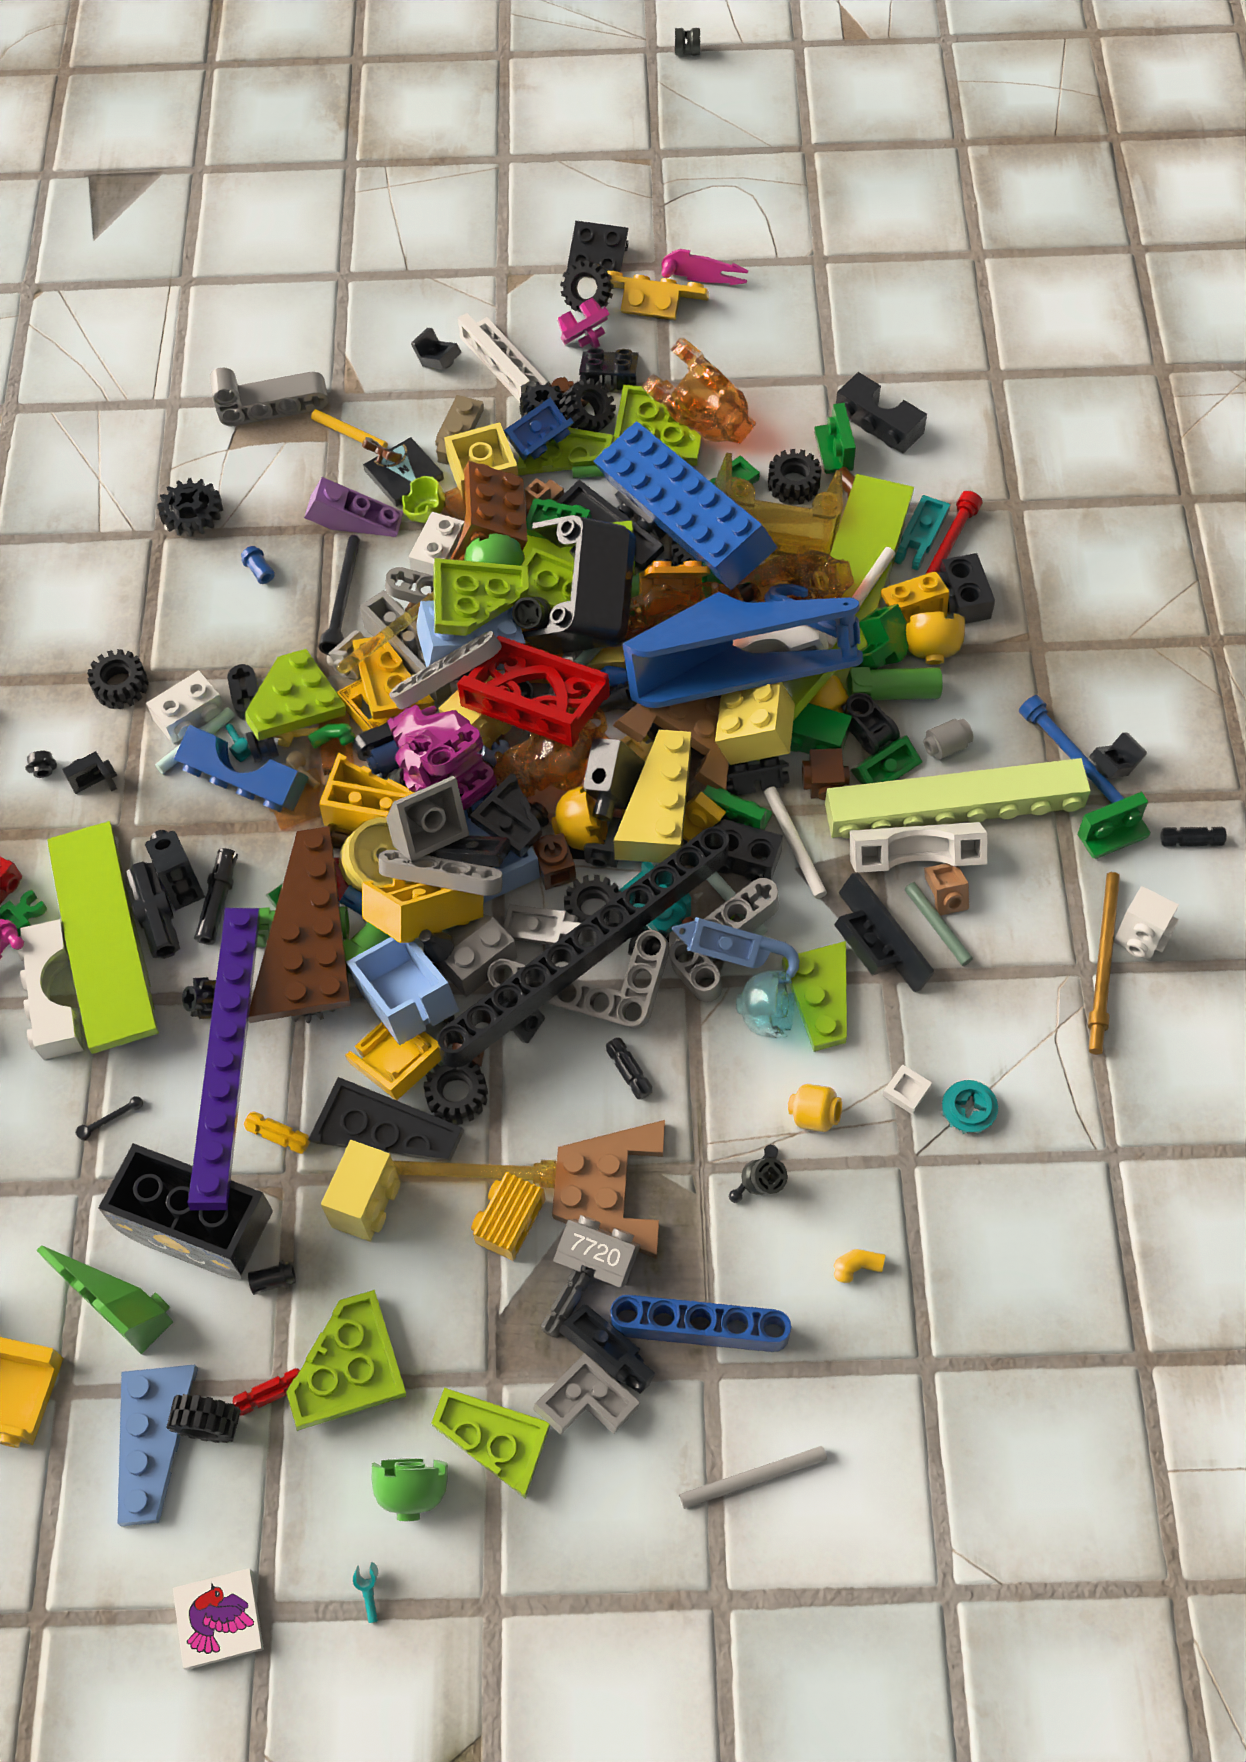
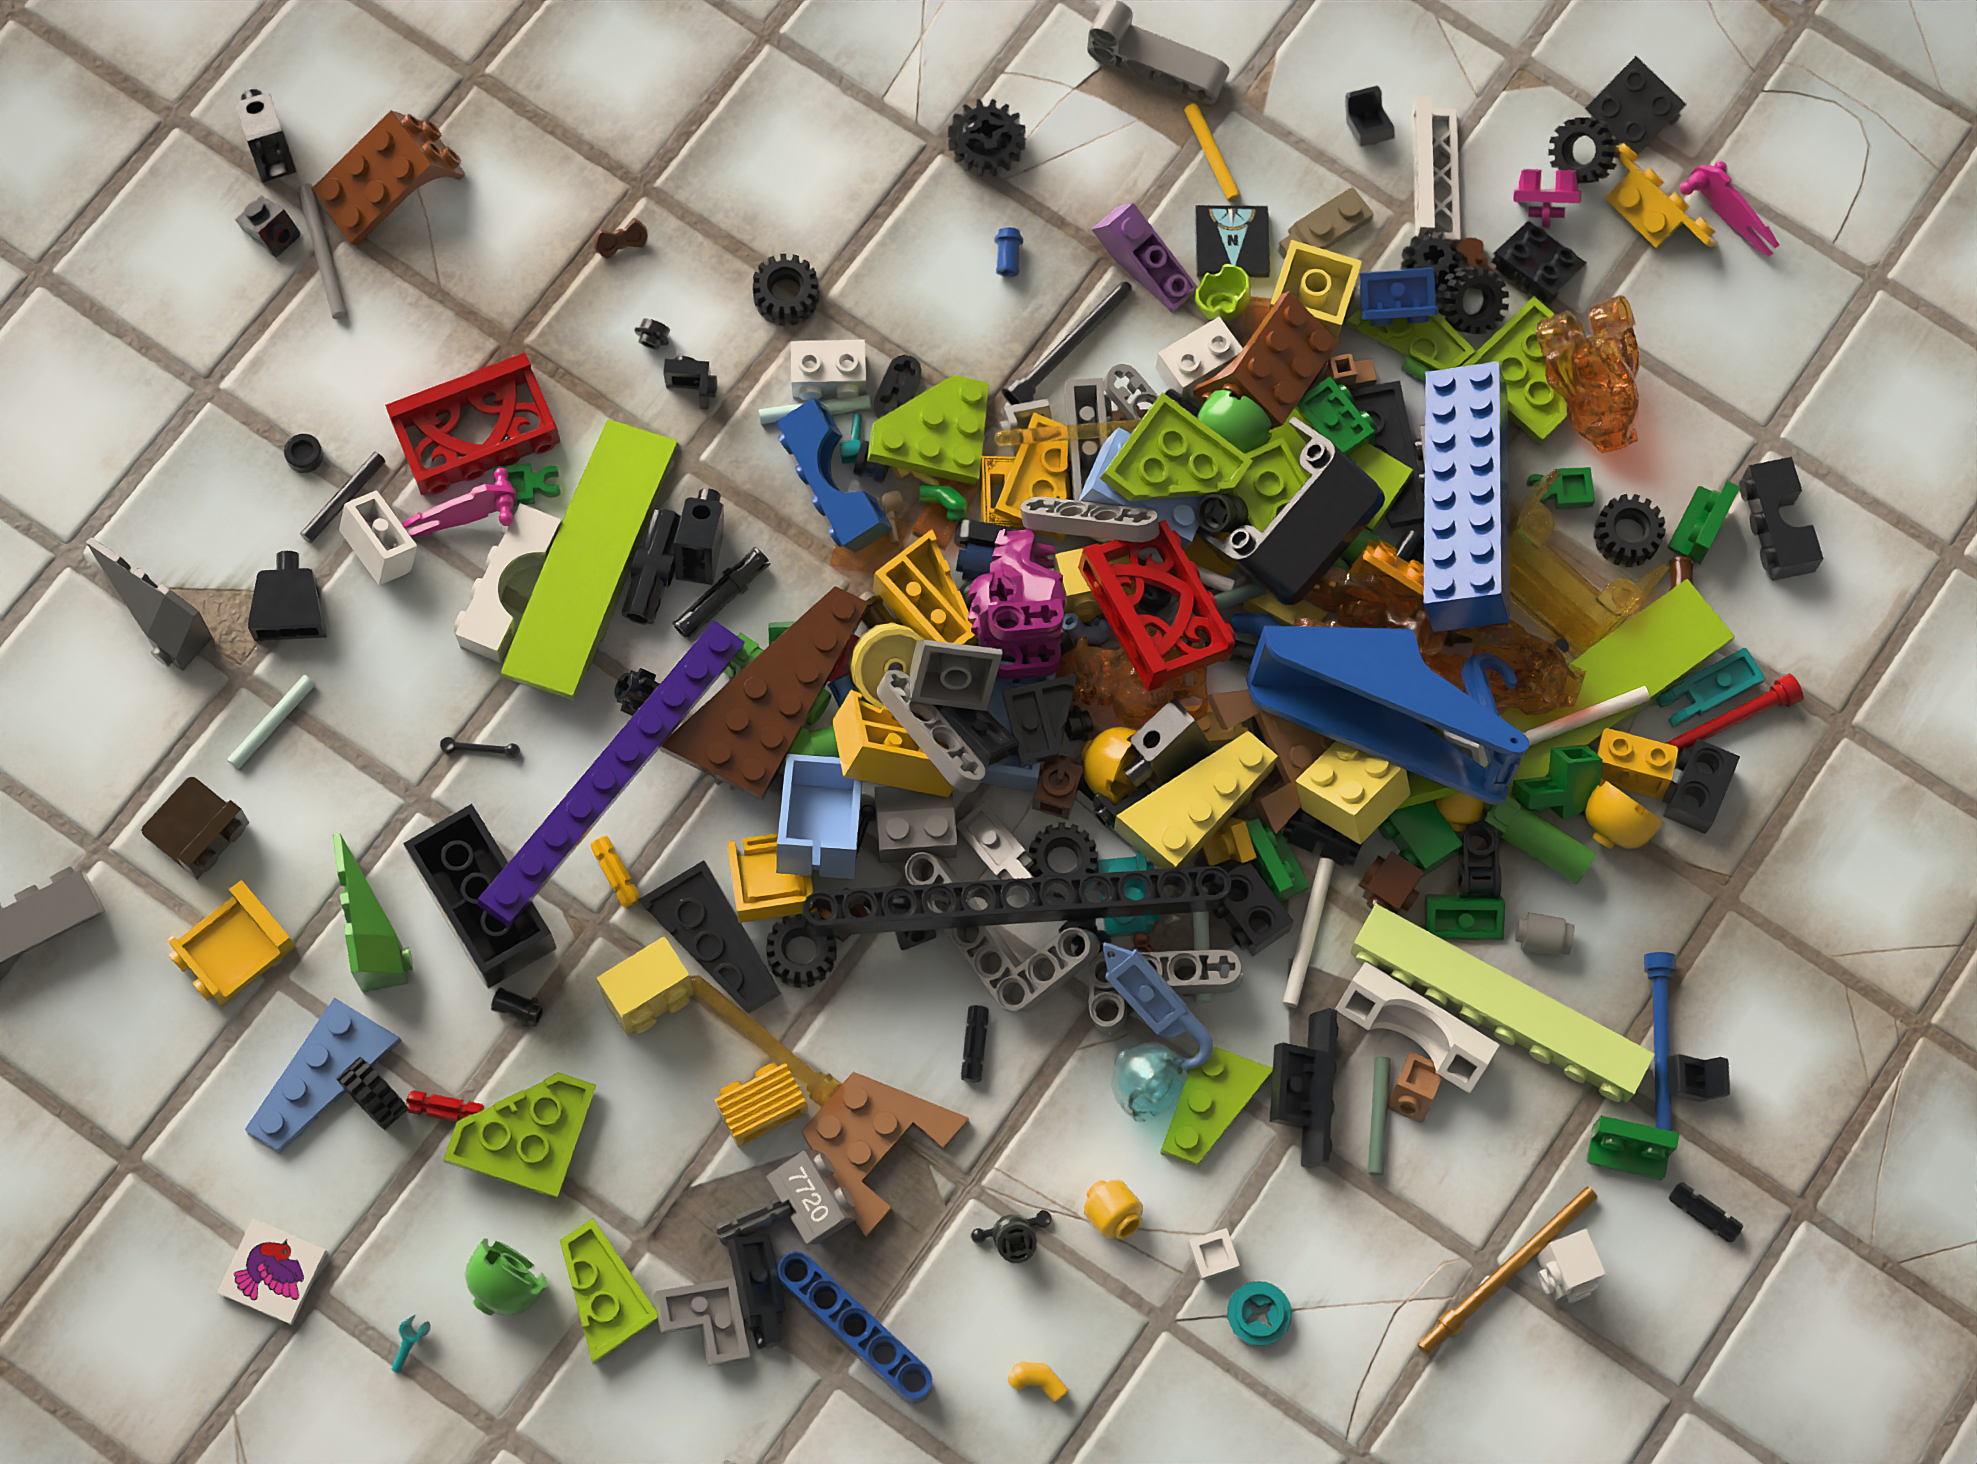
camera: 30 degrees right, 10 degrees up
(382, 452) = (1219, 196): reddish brown piece -> none
(436, 945) = (879, 800): black rock -> none

